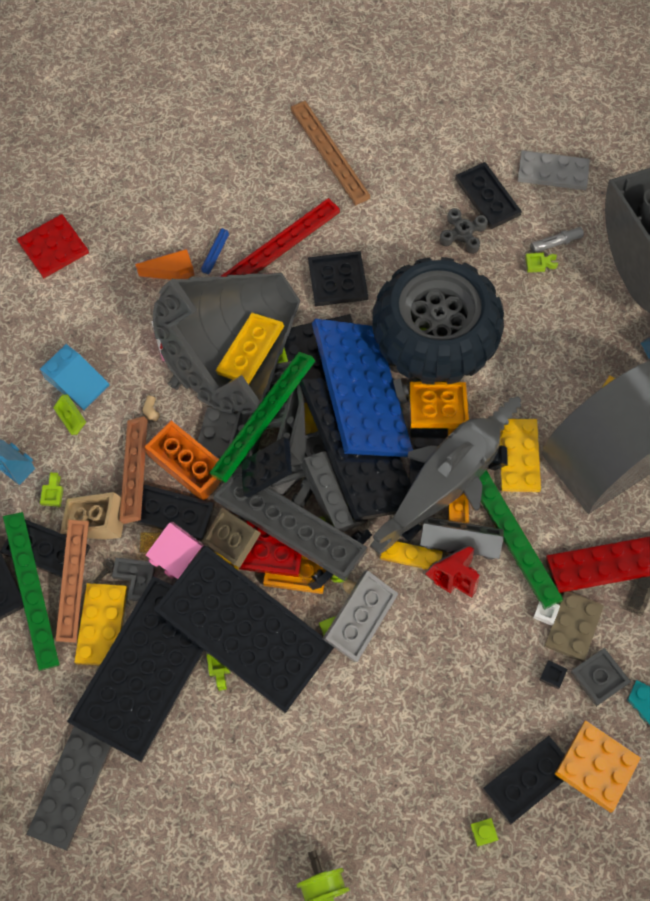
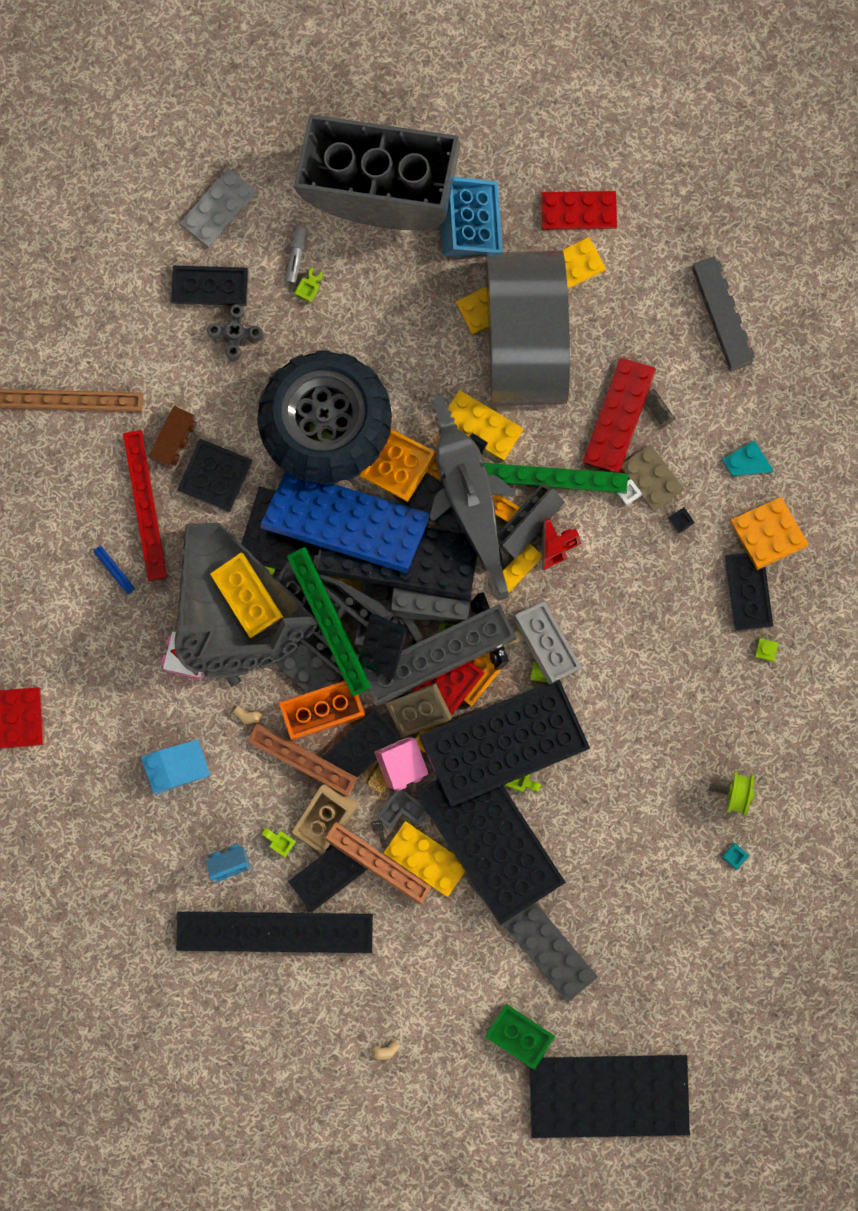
camera: 60 degrees left, 15 degrees up
(31, 591) = (364, 902): green plate -> none
(69, 414) = (211, 790): lime plate -> none
(167, 267) = (109, 619): orange slope -> none
(348, 232) = (173, 437): none -> reddish brown brick
(401, 391) = (364, 487): dark grey plate -> none
(600, 677) = (704, 485): dark grey plate -> none

